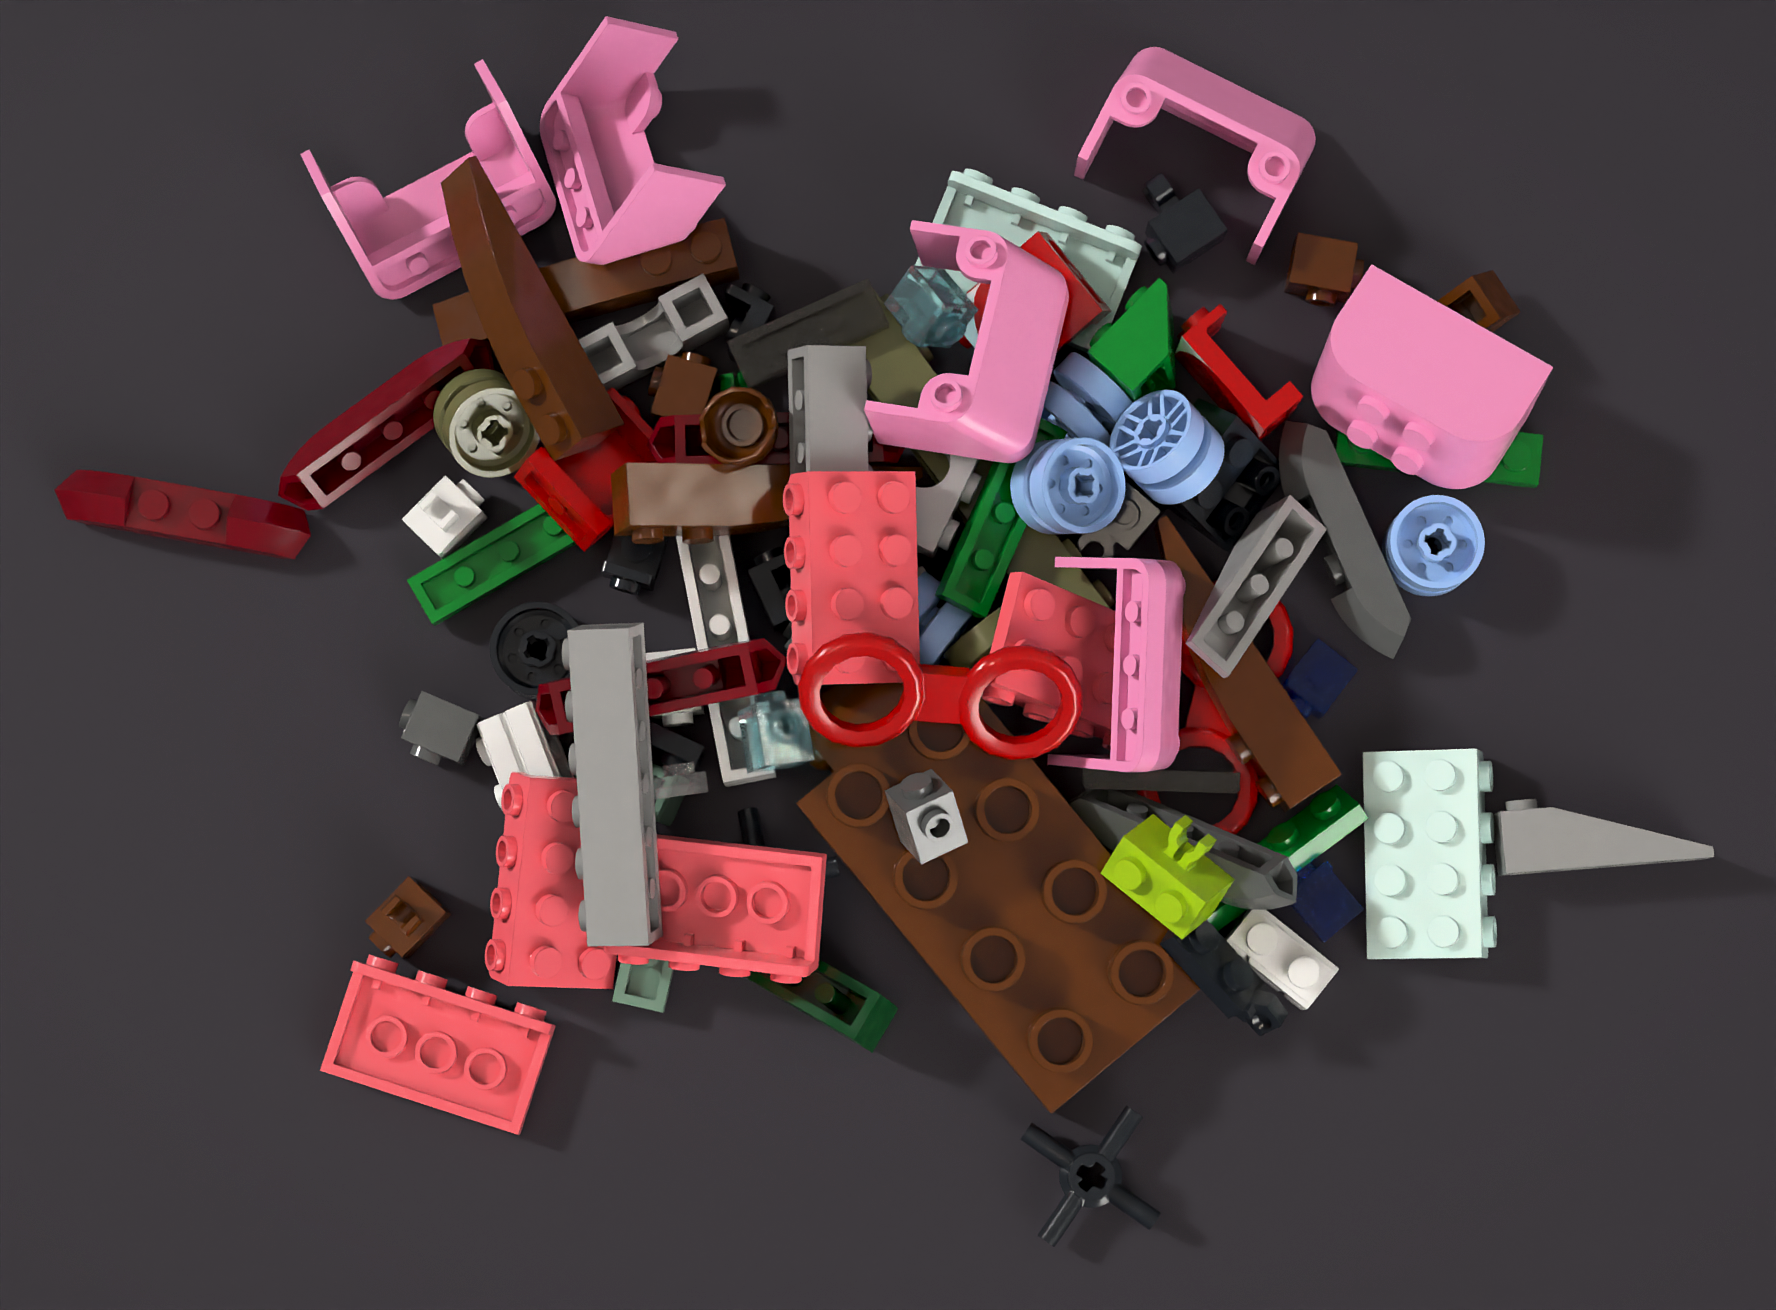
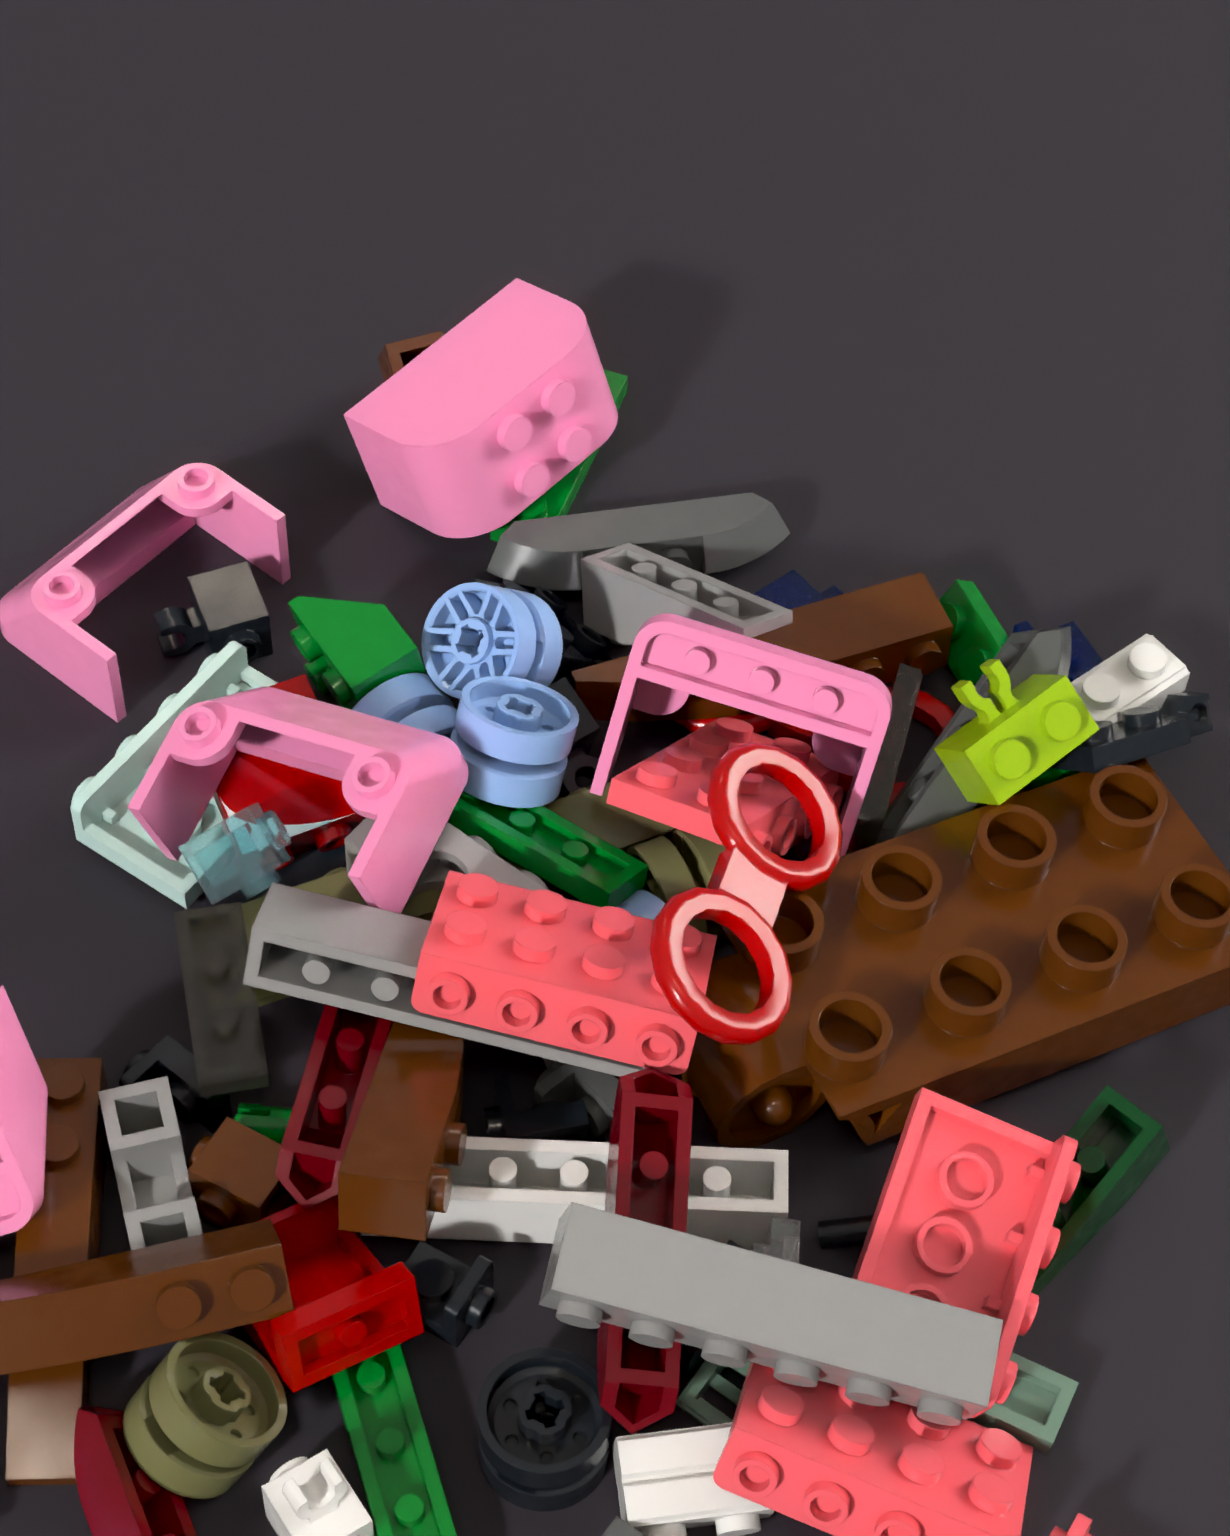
camera: 80 degrees left, 30 degrees down
(739, 426) = (326, 1056): reddish brown hair -> none
(775, 733) = (742, 1120): clear light blue brick -> none
(926, 816) = (895, 951): dark grey brick -> none
(1225, 381) = (418, 581): red panel -> none
(1323, 269) = (322, 503): reddish brown brick -> none
(1428, 854) = (1027, 548): light aqua bracket -> none
(1455, 533) = (670, 456): light blue wheel -> none
(1560, 840) = (1030, 428): light grey slope -> none

